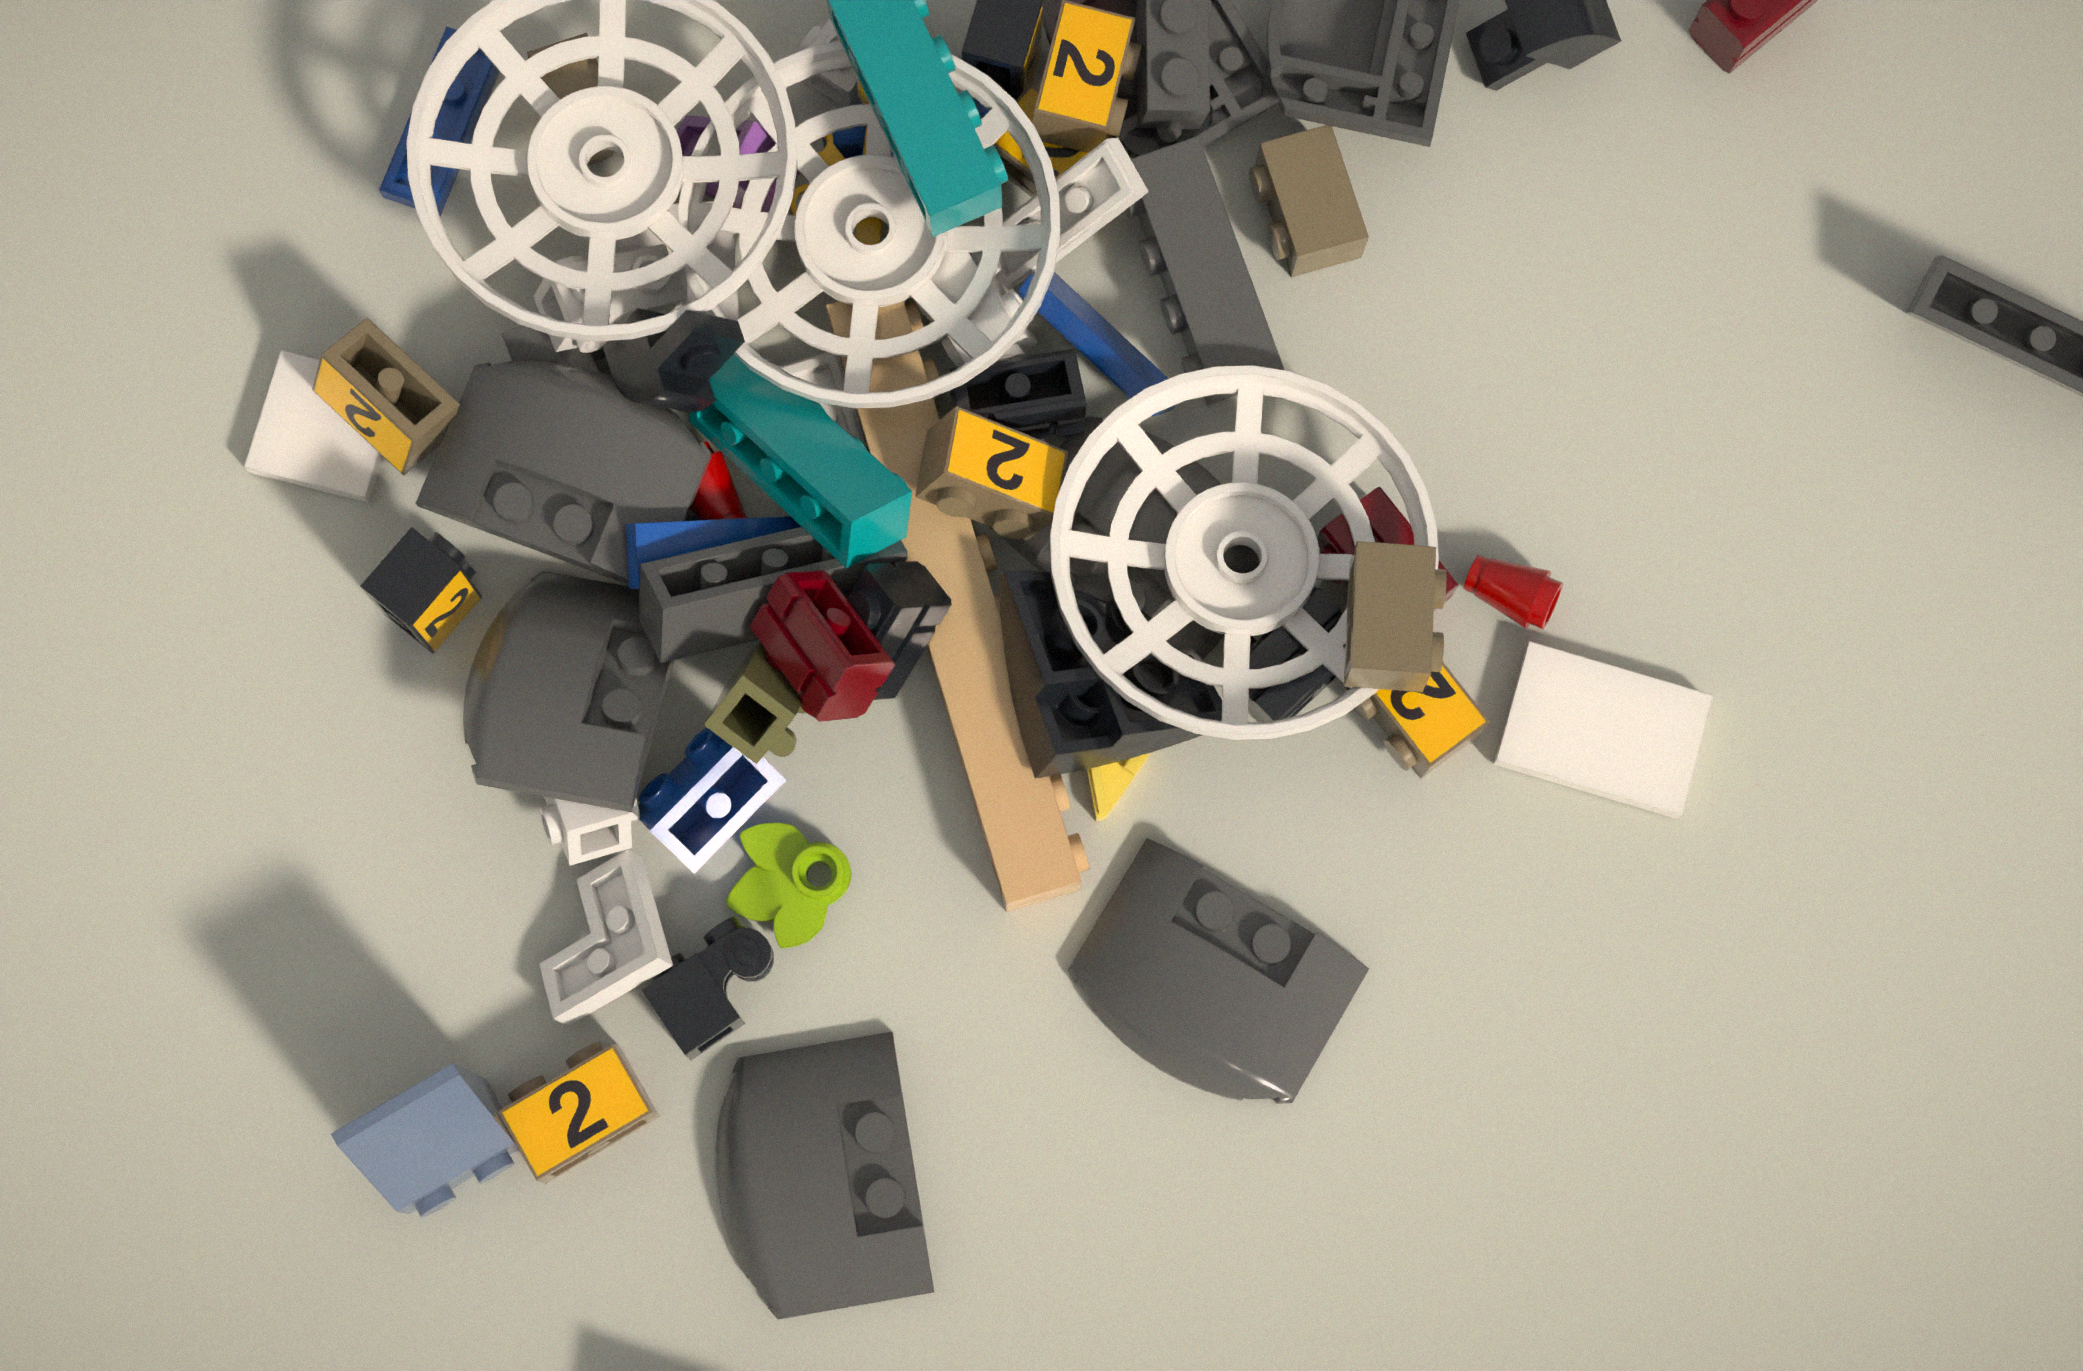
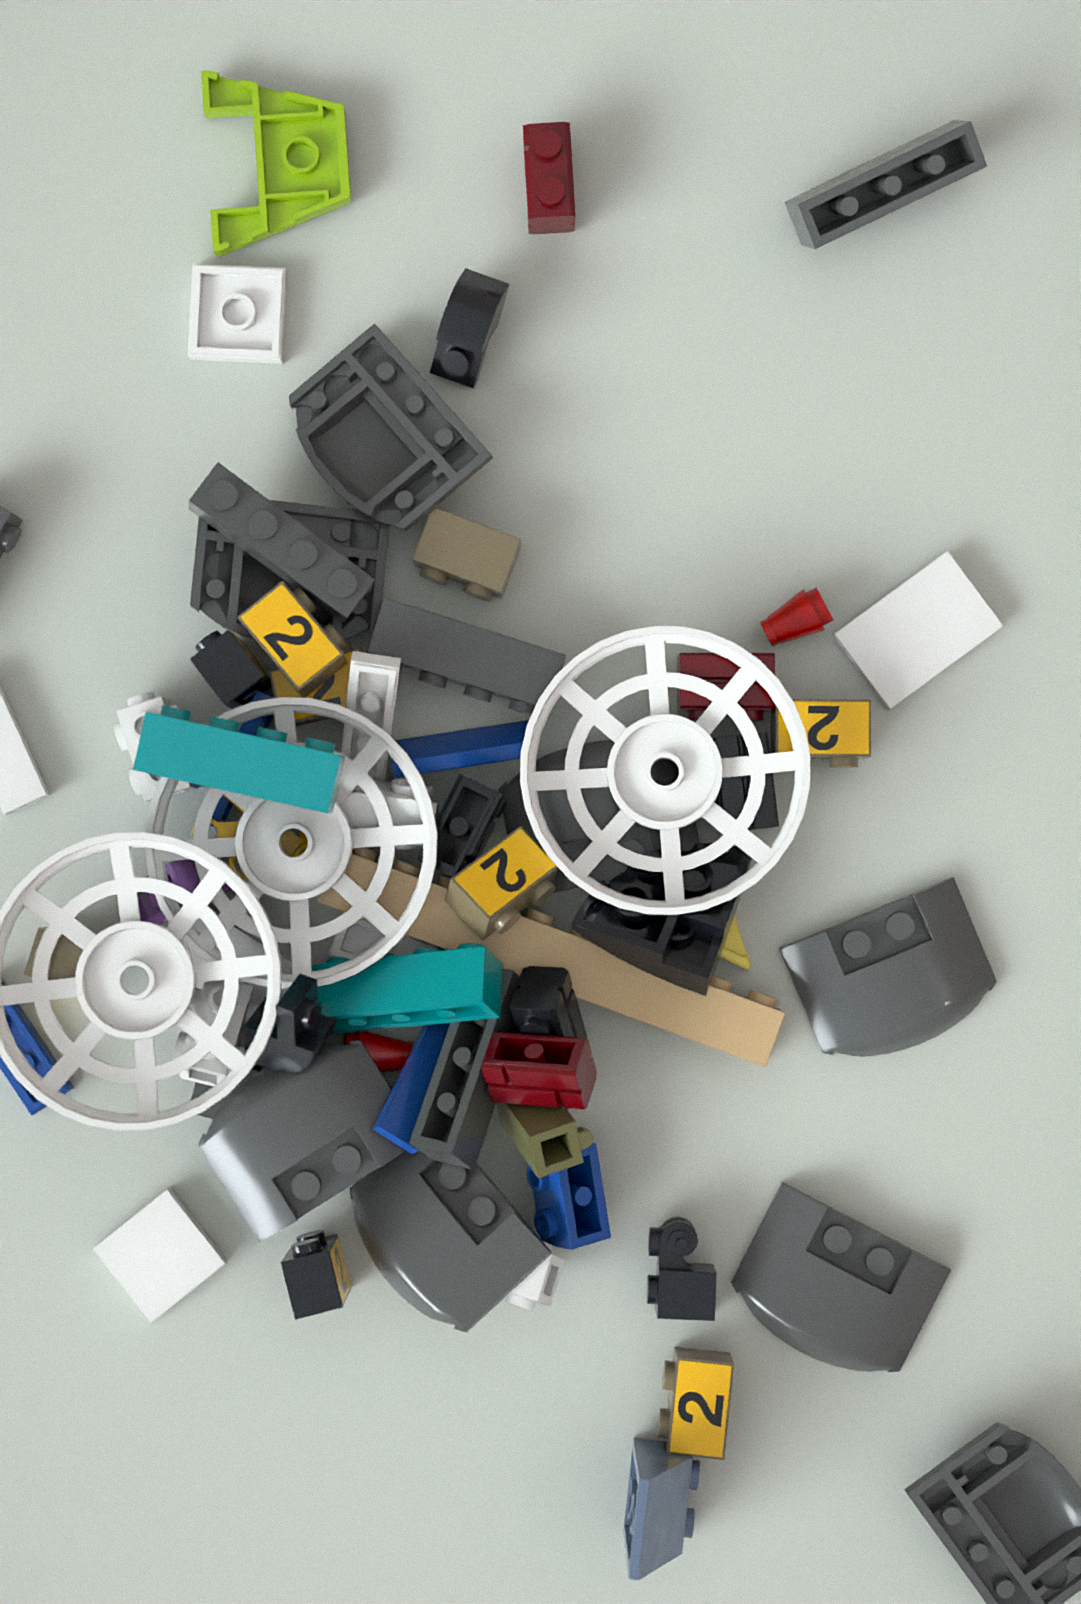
camera: 45 degrees left, 10 degrees up
(384, 395) = (177, 1213): dark tan brick -> none
(623, 942) = (618, 1305): white plate -> none
(780, 886) = (648, 1185): lime plate -> none
(1392, 616) = (779, 718): dark tan brick -> none

